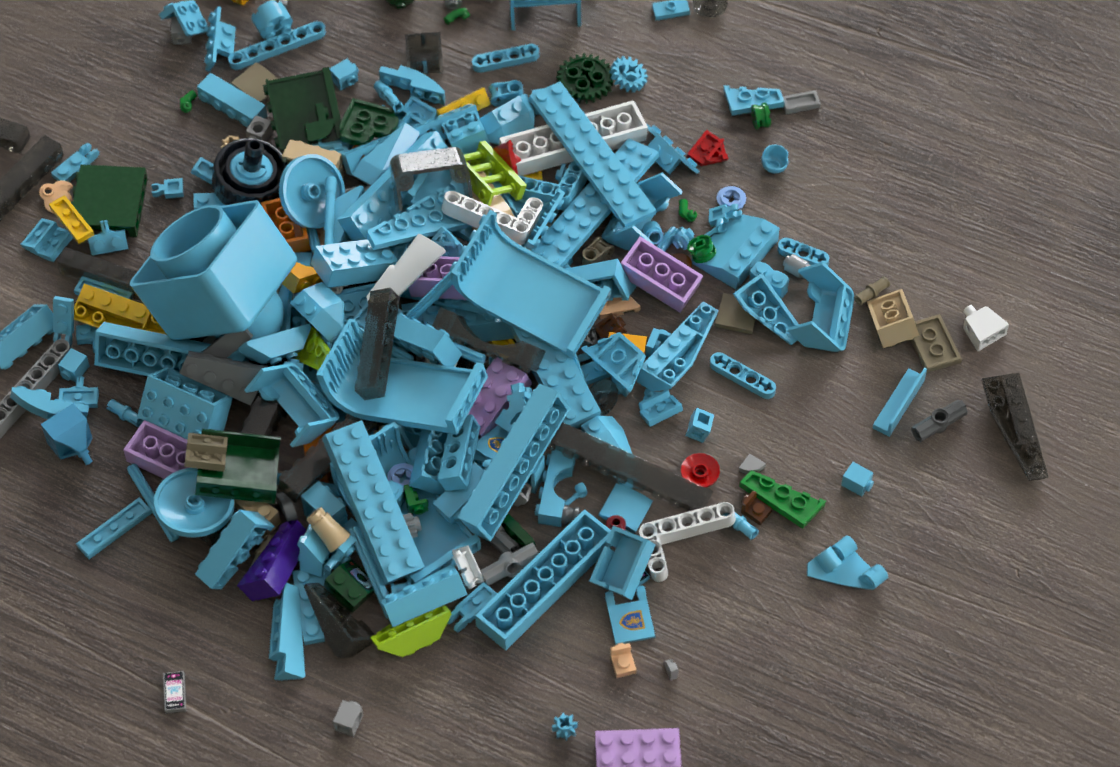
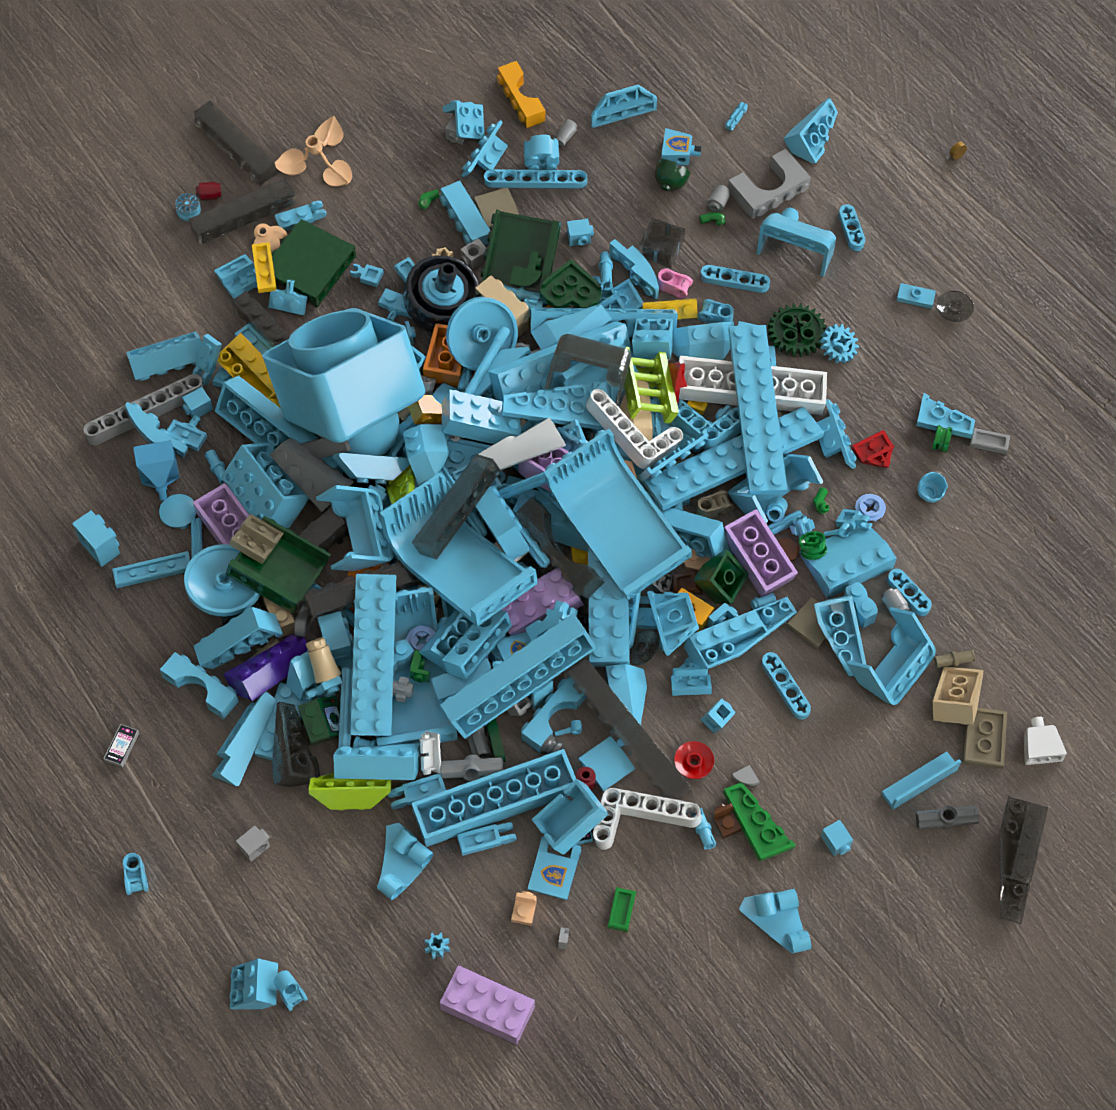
camera: 25 degrees right, 5 degrees up
(47, 521) = (97, 538): none -> medium azure brick
(59, 83) = (328, 133): none -> light nougat plant
(109, 467) = (177, 511): none -> medium azure dish
(194, 602) = (180, 671): none -> medium azure arch
(452, 83) = (674, 283): none -> bright pink piece
(491, 669) = (402, 860): none -> medium azure panel
(554, 618) = (485, 838): none -> medium azure hinge
(639, 308) = (721, 578): none -> dark green slope
(680, 317) = (762, 601): none -> medium azure pin
(707, 622) = (621, 909): none -> green tile

